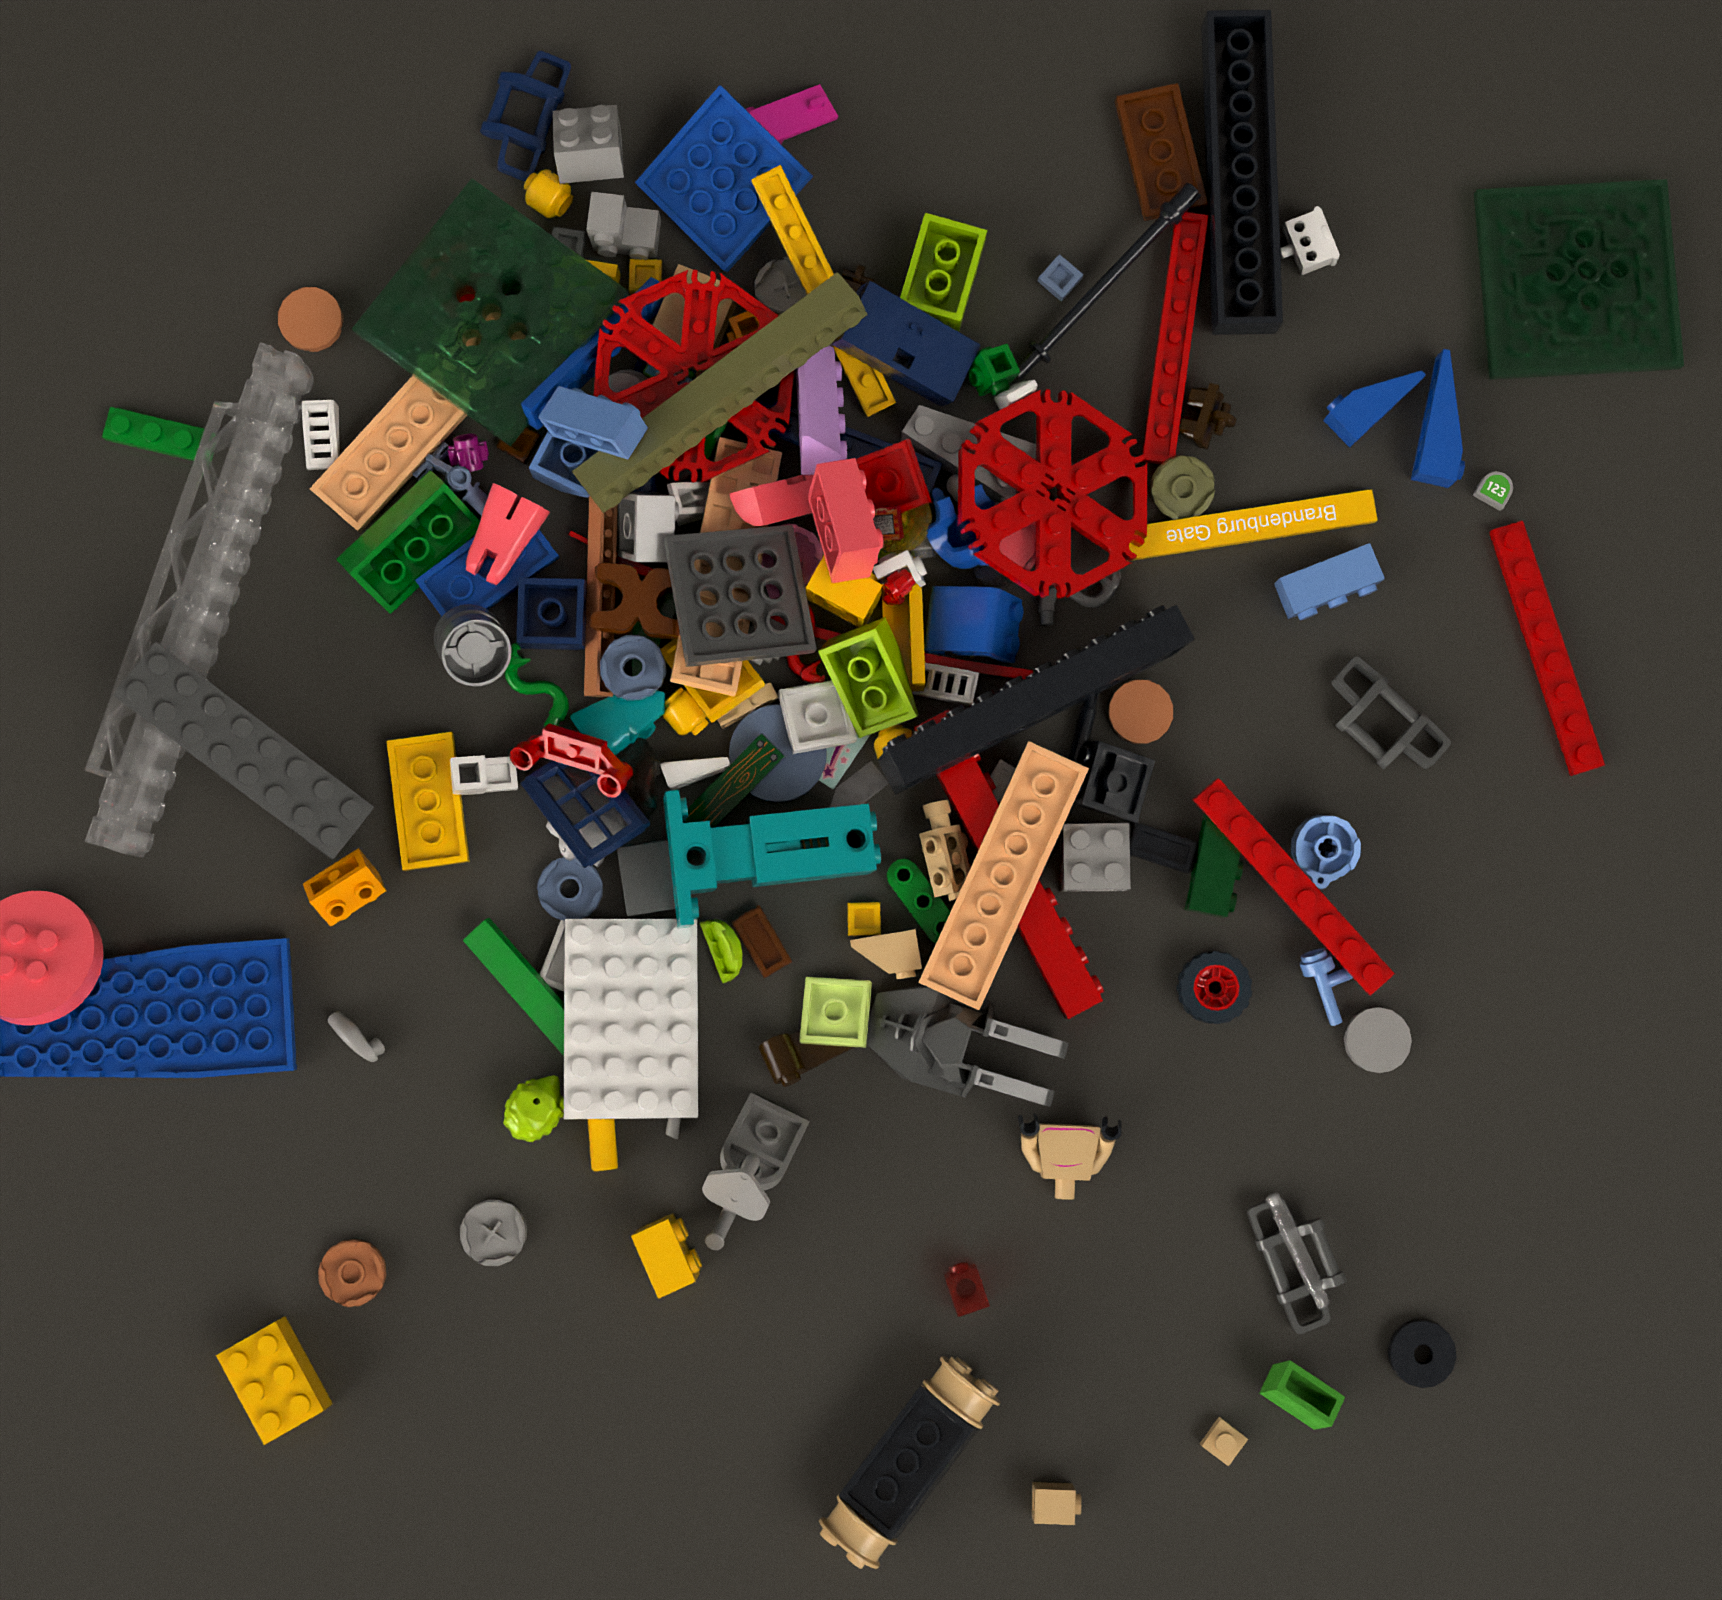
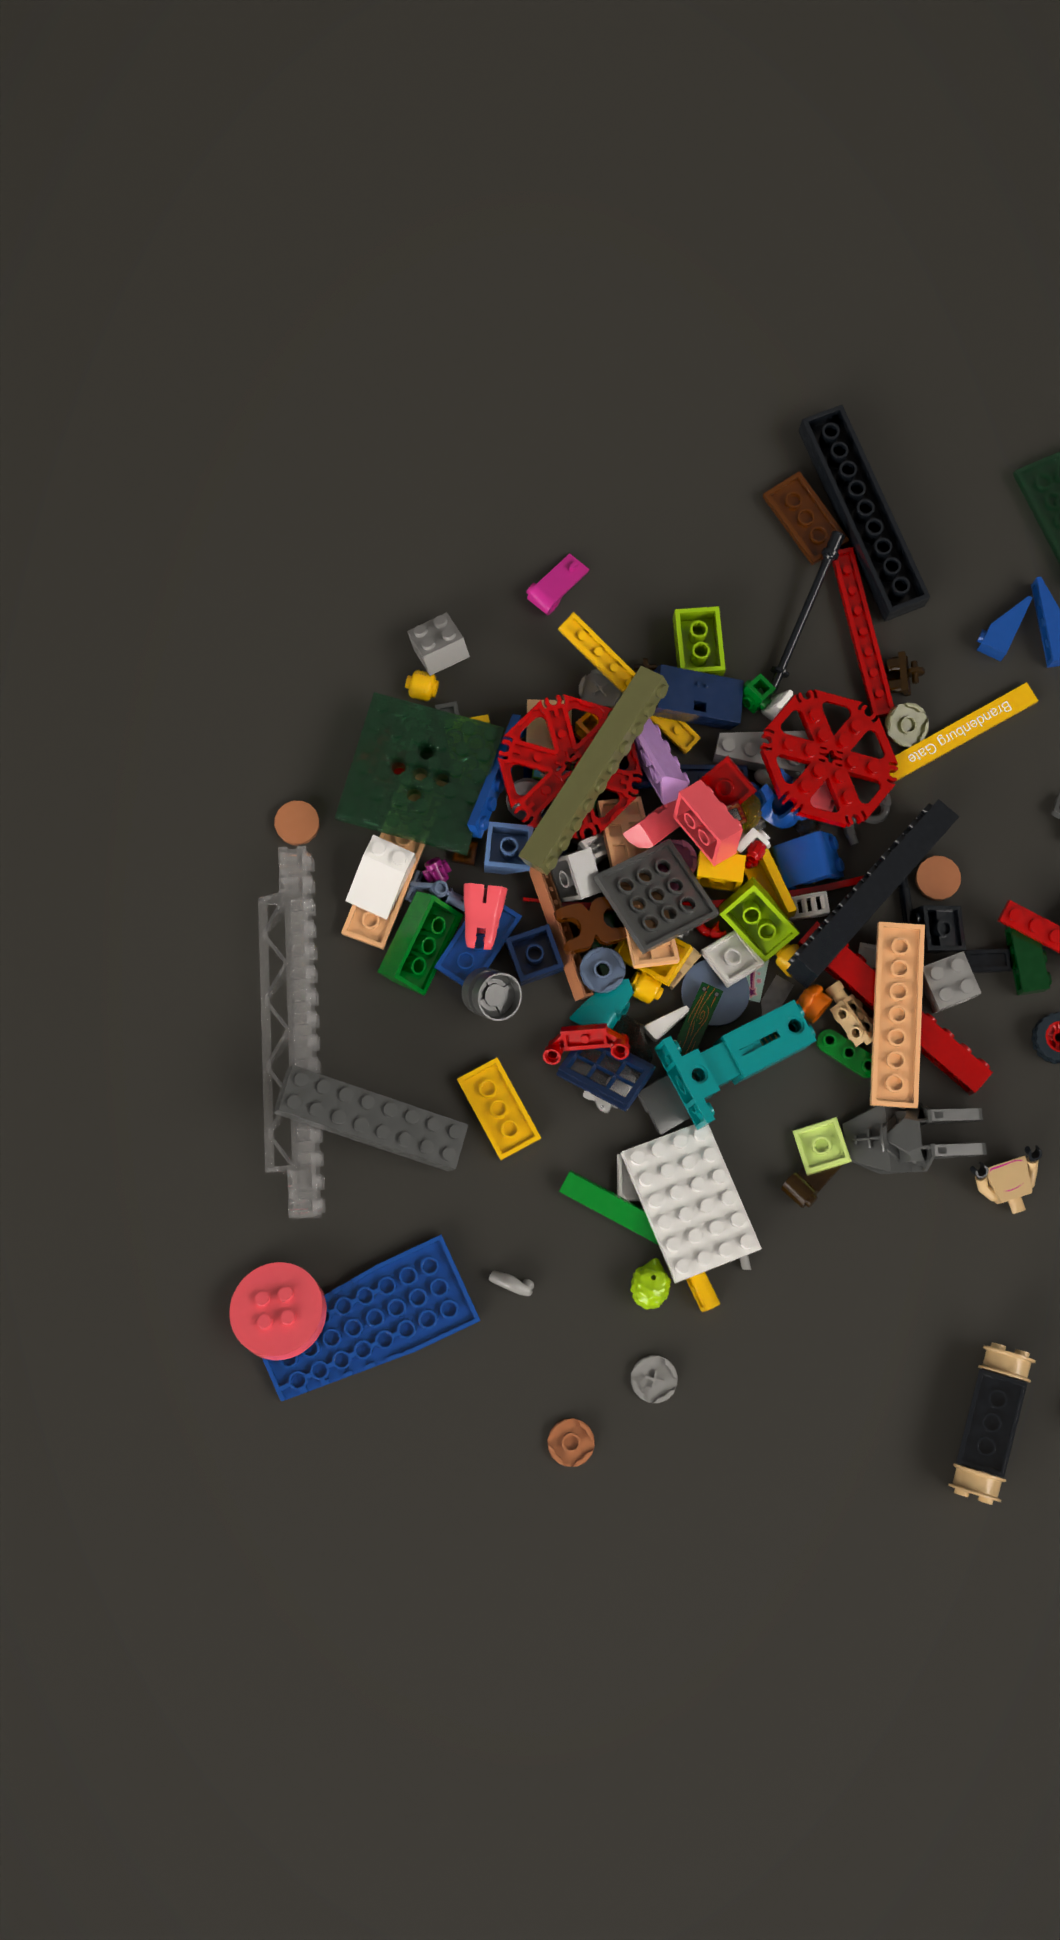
camera: 20 degrees left, 5 degrees down
(152, 433) = (222, 935): green plate -> none
(274, 1380) = (549, 1534): yellow brick -> none
(309, 421) = (332, 874): white slope -> none
(344, 887) = (469, 1186): light orange brick -> none
(387, 433) = (380, 877): none -> white slope
(479, 775) = (529, 1077): white brick -> none
(514, 81) = (400, 655): dark blue bar -> none
(556, 903) = (614, 1145): sand blue tile -> none
(560, 701) = (561, 1015): green animal -> none
(593, 422) = (520, 818): medium blue brick -> none
(622, 229) = (481, 690): light grey brick -> none
(641, 271) = (503, 714): yellow tile -> none
(667, 1255) = (778, 1348): yellow brick -> none
(708, 173) = (527, 636): blue plate -> none
(724, 948) = (732, 1132): lime plate -> none
(759, 1144) = (812, 1262): light grey plate -> none
(761, 941) = (754, 1119): reddish brown tile -> none
(864, 919) = (814, 1079): yellow tile -> none
(891, 952) = (843, 1093): tan slope -> none
(899, 817) = (814, 1002): none -> orange piece
(966, 1303) = (989, 1300): clear red brick -> none
(1060, 277) = (774, 620): sand blue plate -> none
(1318, 238) = (927, 537): white piece -> none
(1329, 582) = (1025, 751): medium blue brick -> none

